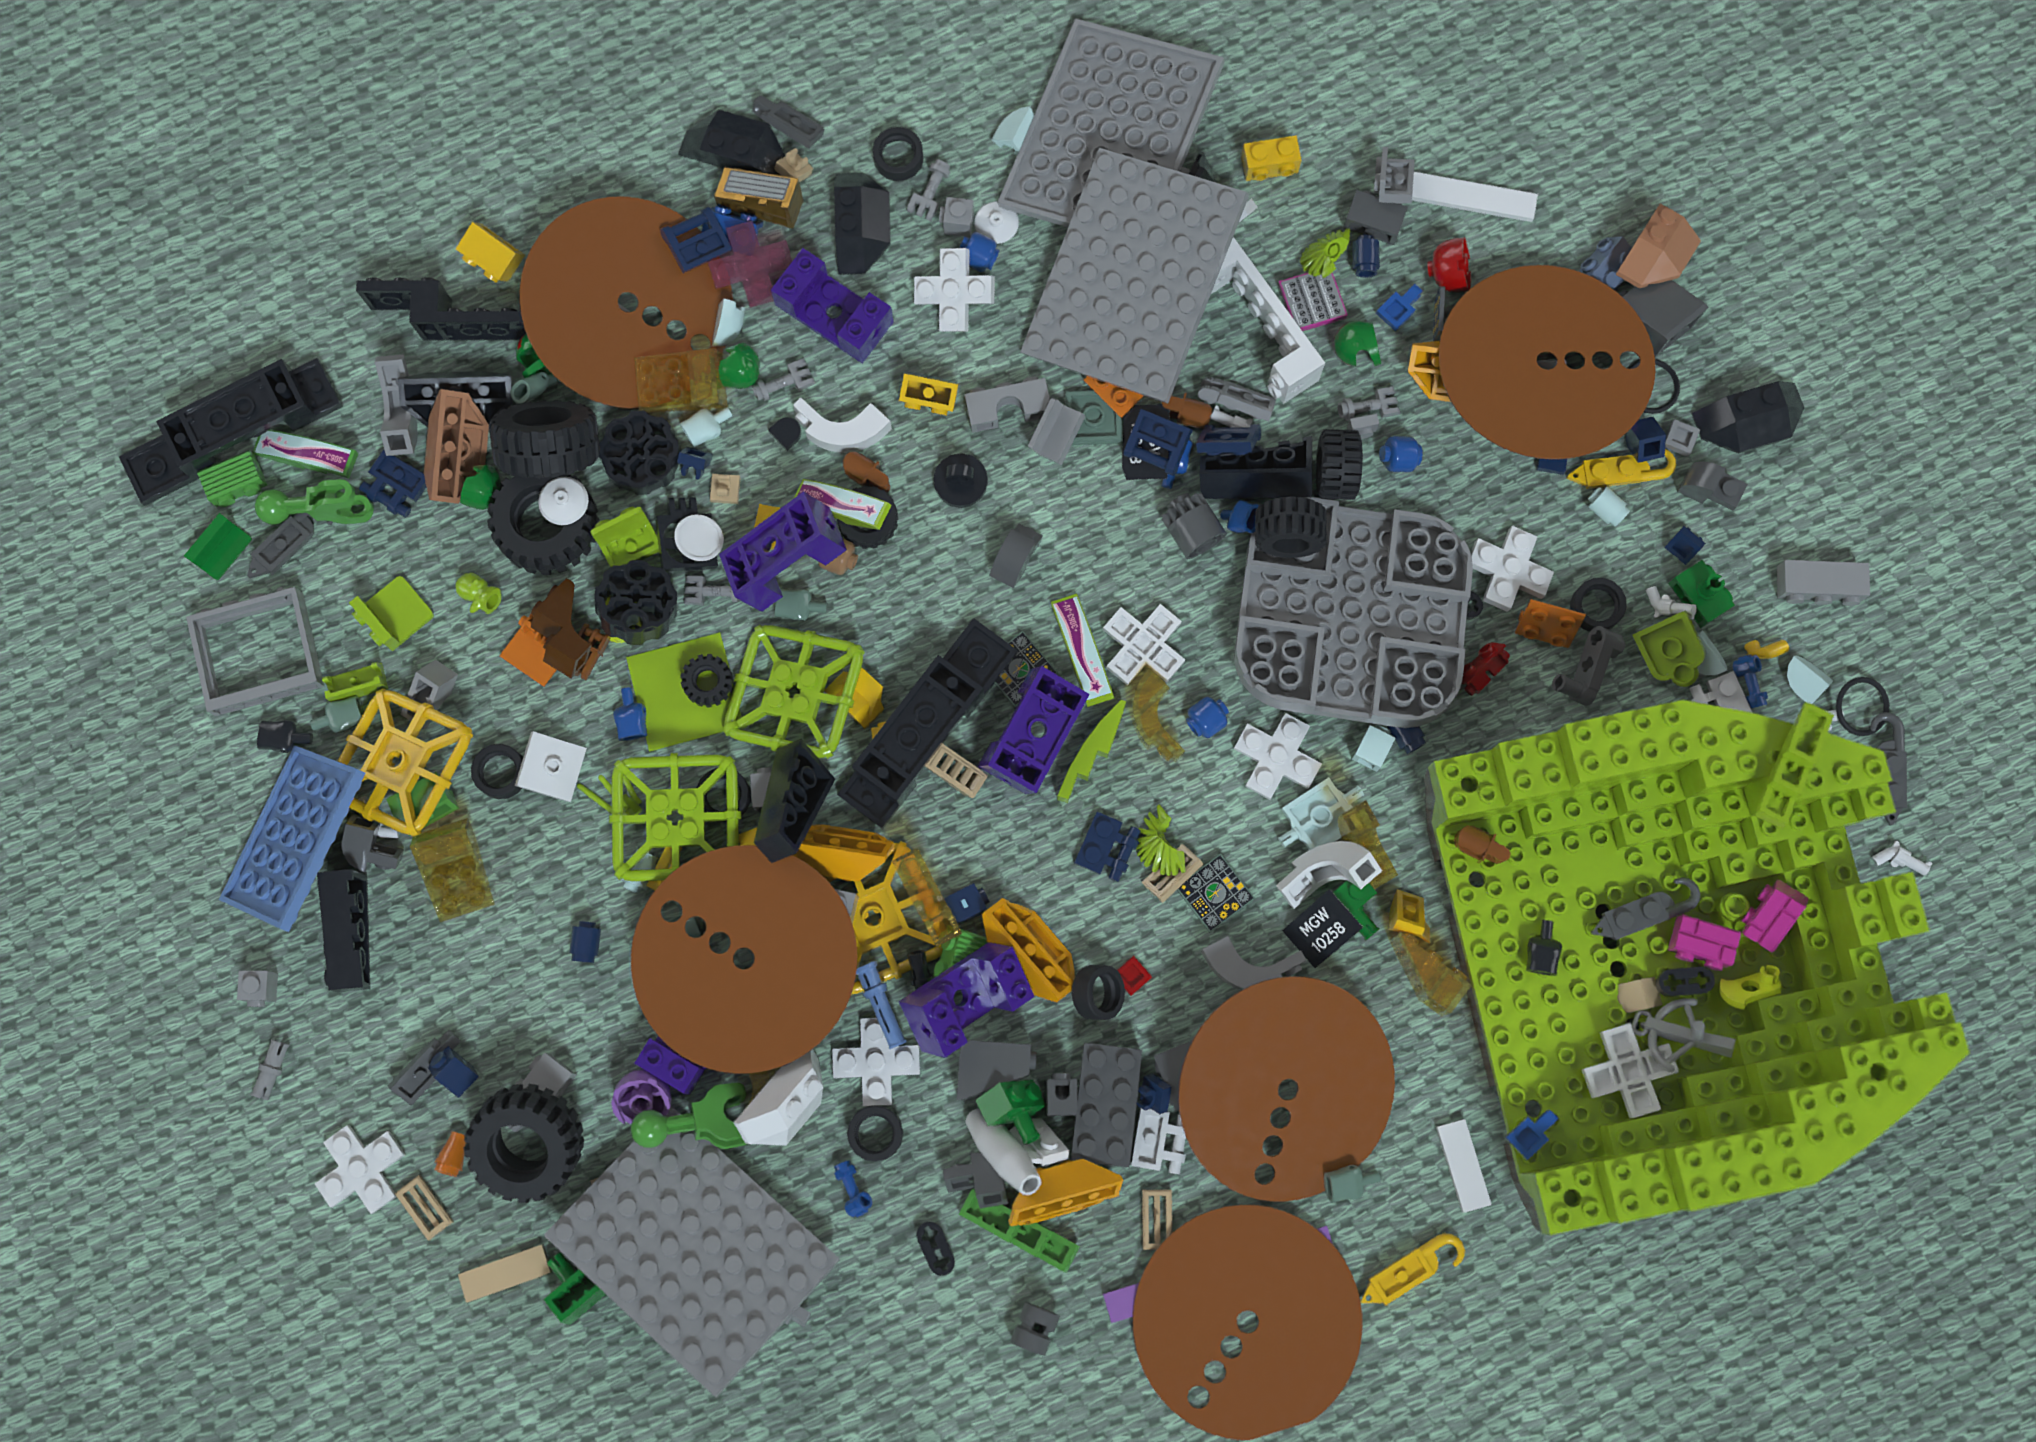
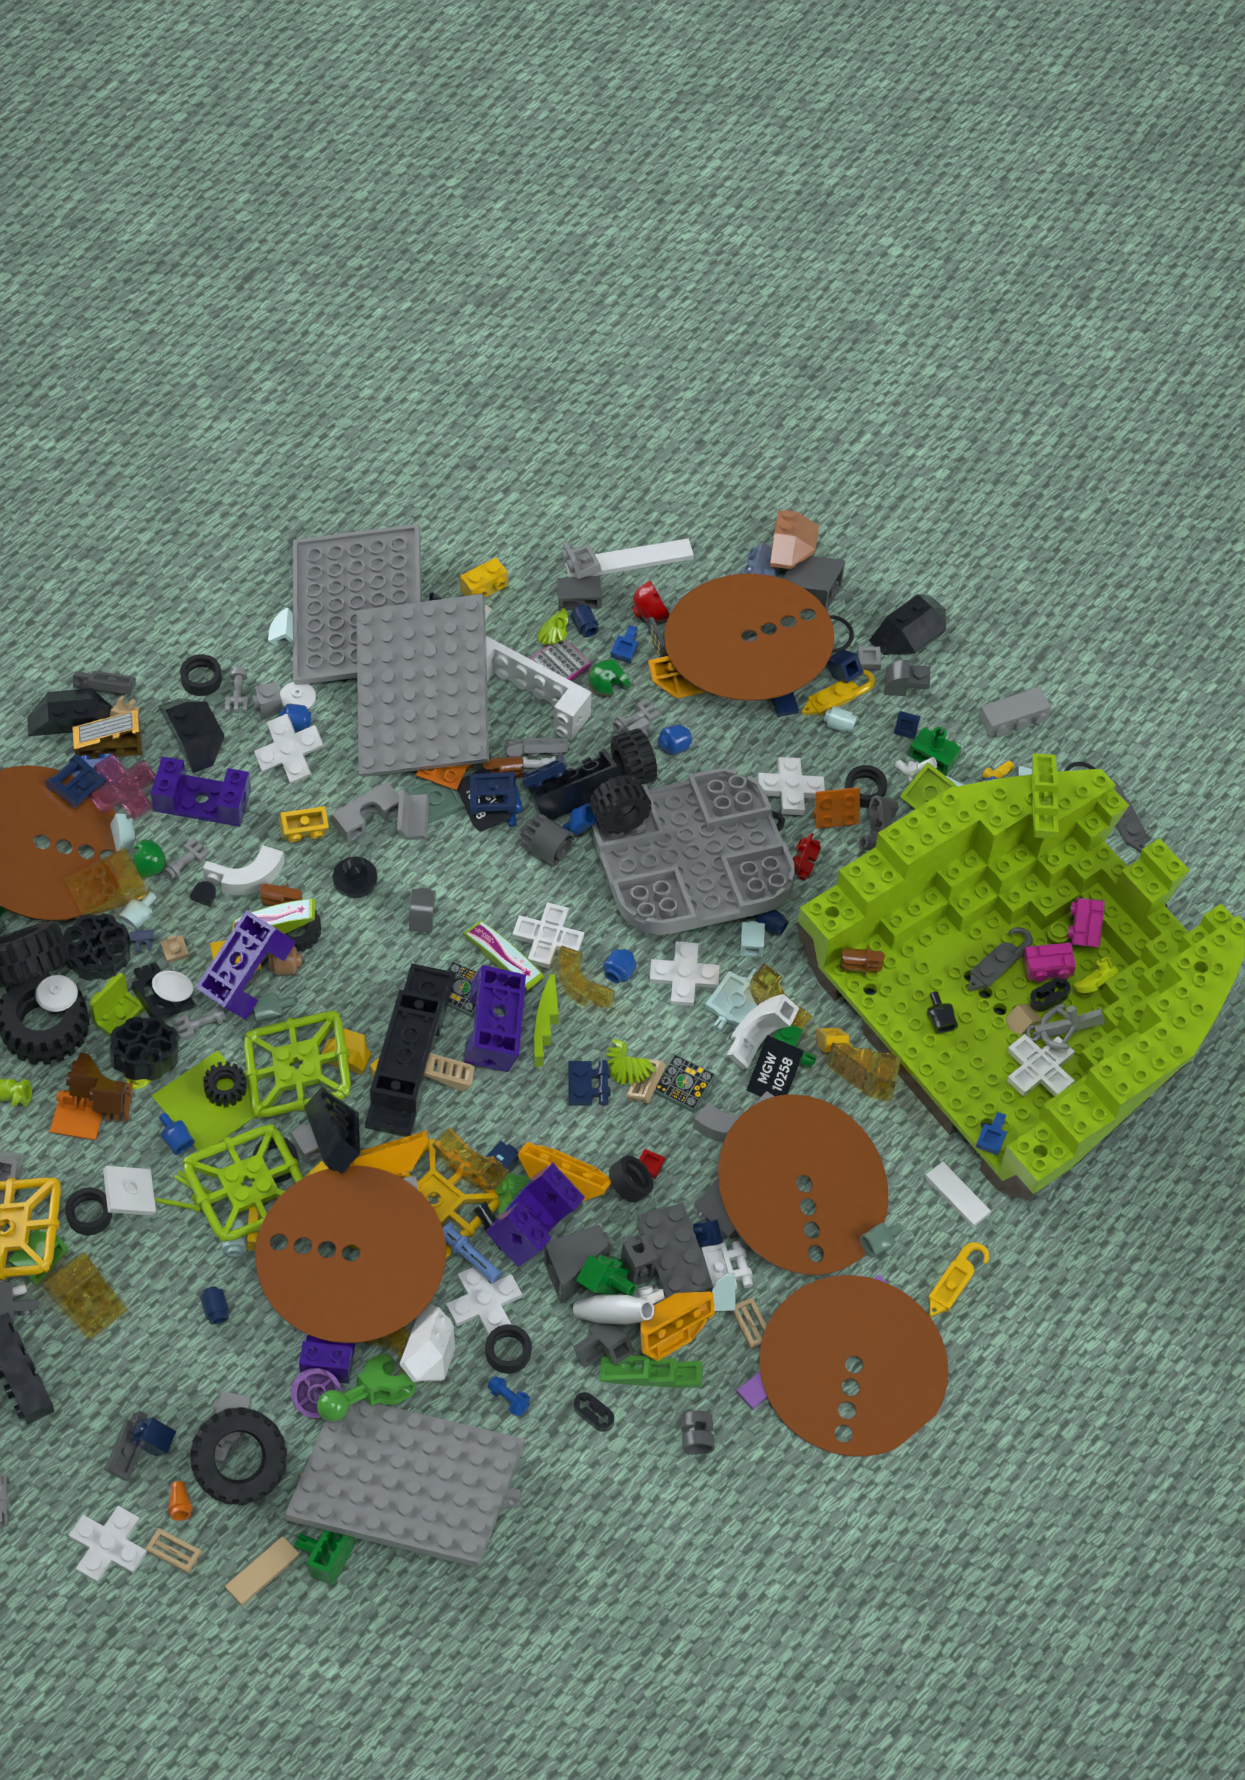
camera: 30 degrees left, 20 degrees down
(1138, 1179) = (724, 1293): none -> light aqua brick

